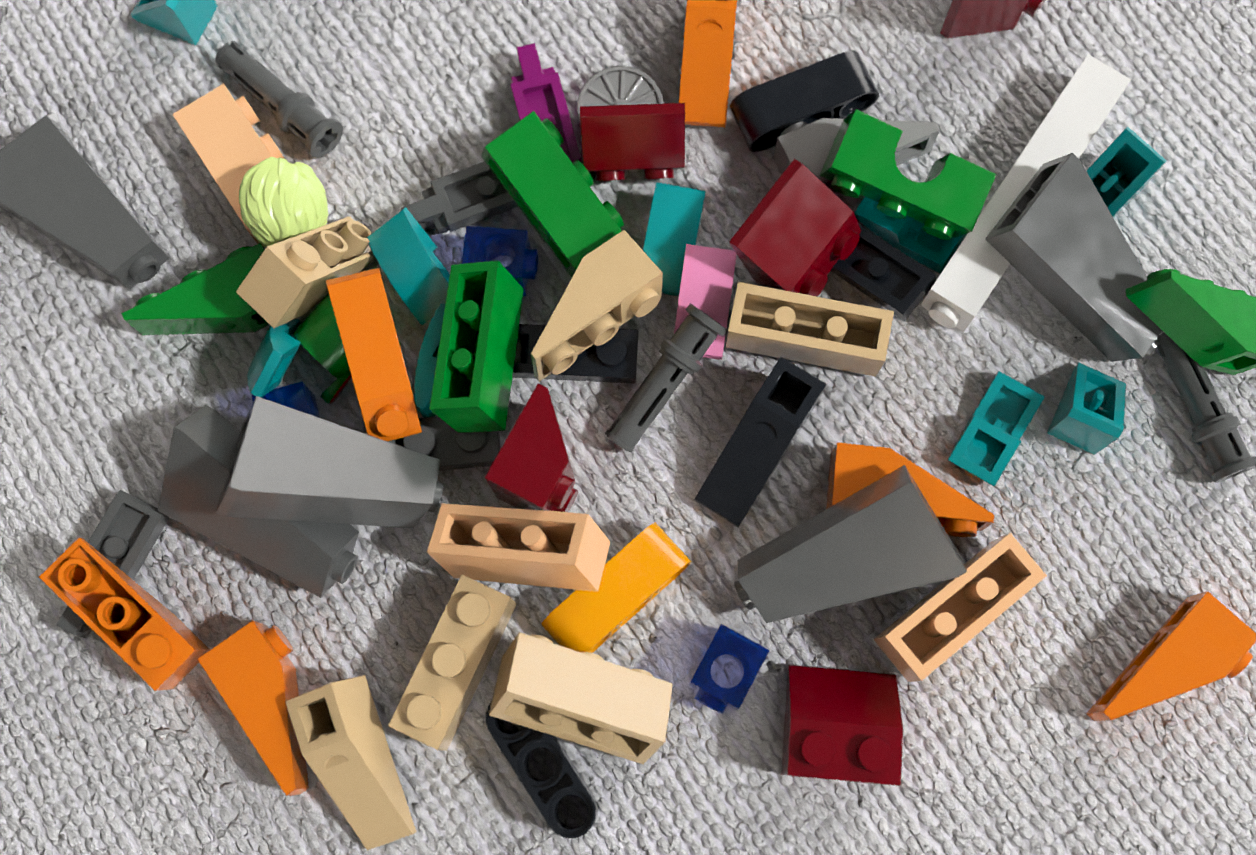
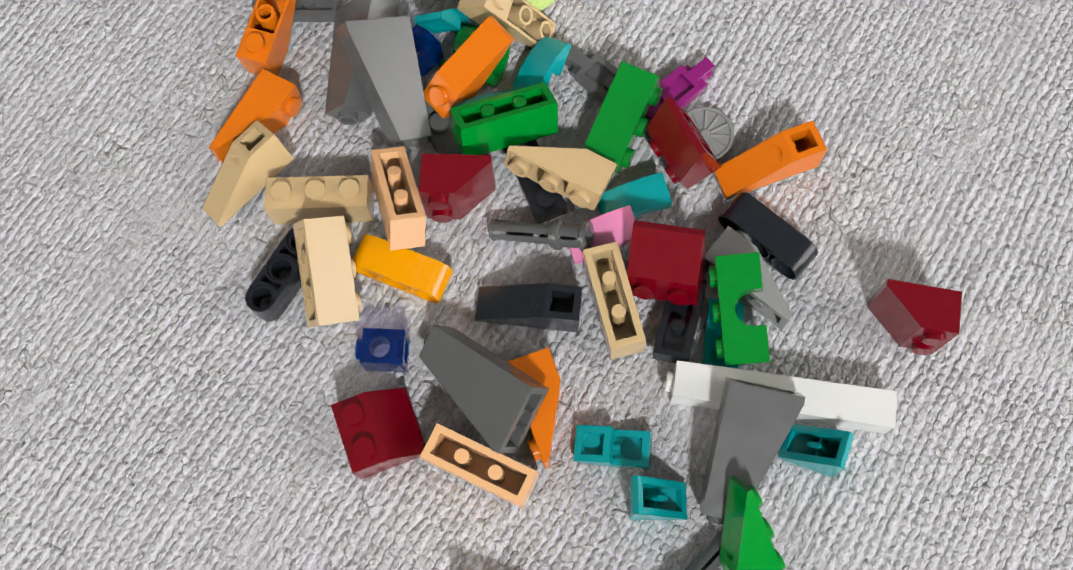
camera: 65 degrees right, 5 degrees down
(488, 243) = (571, 99): clear blue brick -> none

